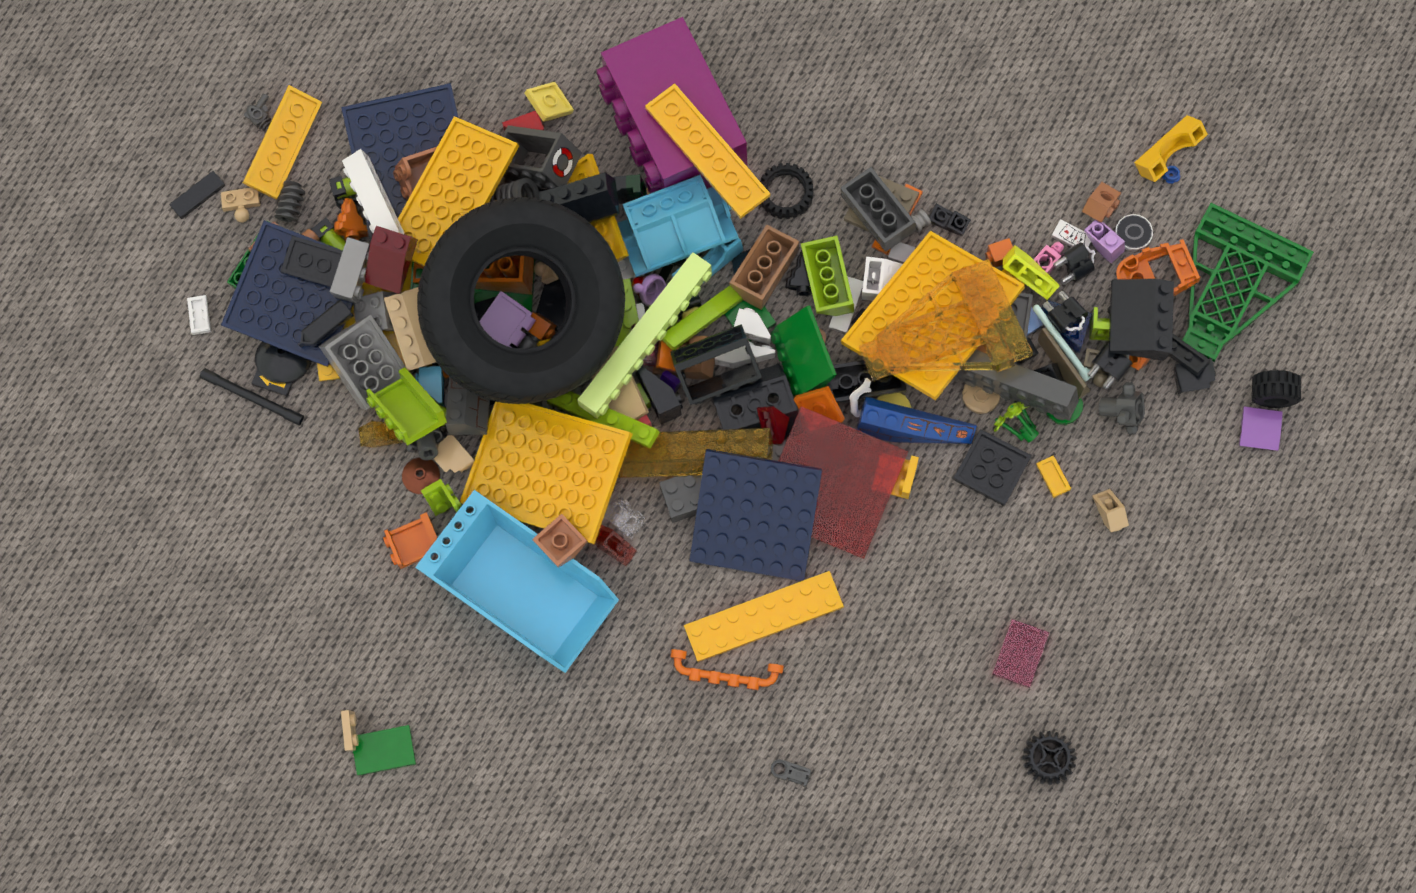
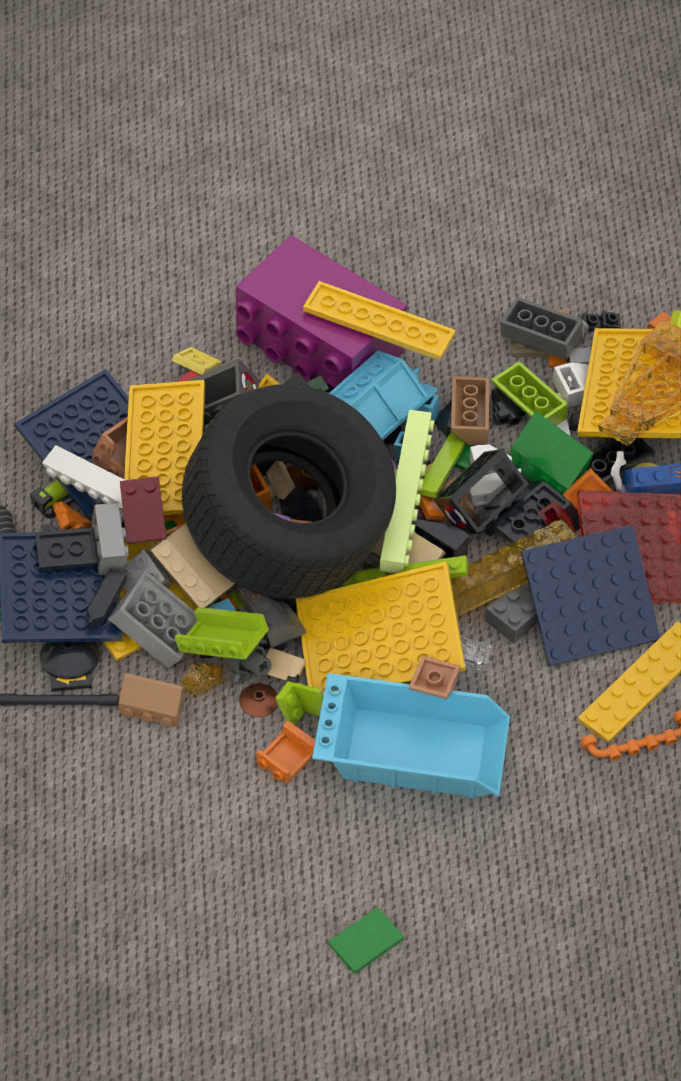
camera: 35 degrees left, 20 degrees down
(322, 438) = (151, 700): none -> medium nougat slope
(349, 730) = (330, 934): tan wing -> none
(614, 545) = (476, 679): clear red slope -> none
(802, 176) = (460, 365): black tyre -> none

